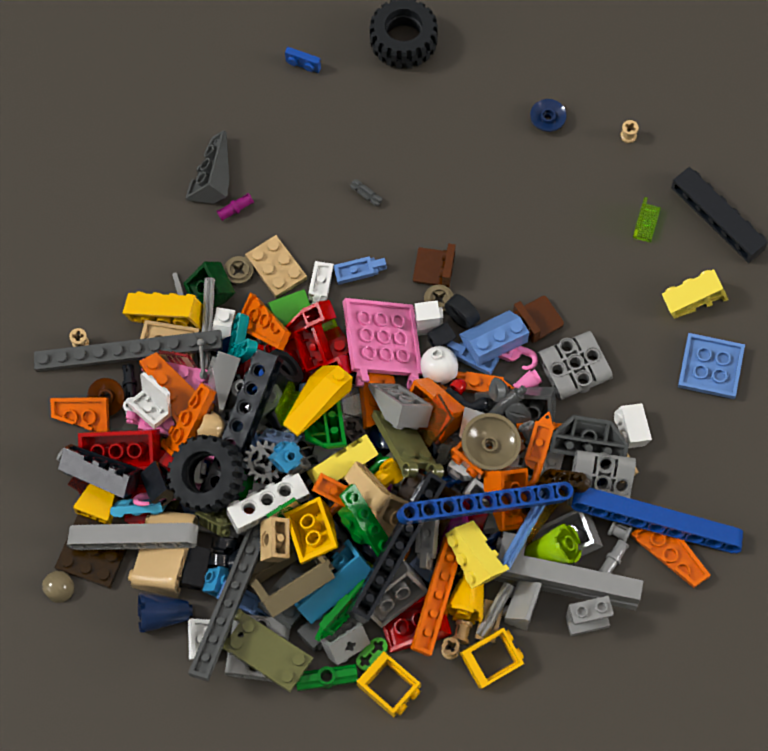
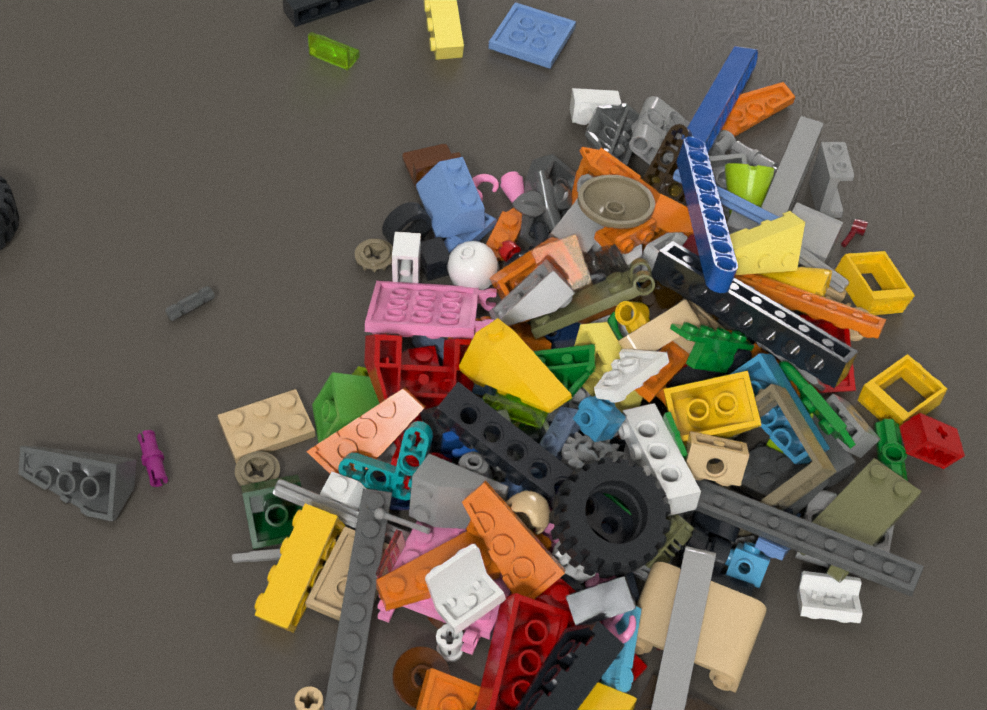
camera: 85 degrees left, 15 degrees down
(129, 382) = (402, 642): black pin -> none
(161, 611) = (788, 651): dark blue cone -> none
(320, 282) = (305, 372): white hinge -> none
(322, 470) = (629, 373): none -> white wing
(338, 692) = (931, 441): none -> red brick
(358, 269) = (305, 331): medium blue hinge -> none
(367, 651) = (861, 405): bright green beam -> none
(434, 266) = (329, 244): reddish brown bracket -> none
(548, 108) = (156, 102): dark blue dish -> none
(558, 648) = (858, 227): none -> dark red hand
(581, 348) = (502, 141): light grey connector -> none
(629, 131) = (210, 35): tan bush -> none

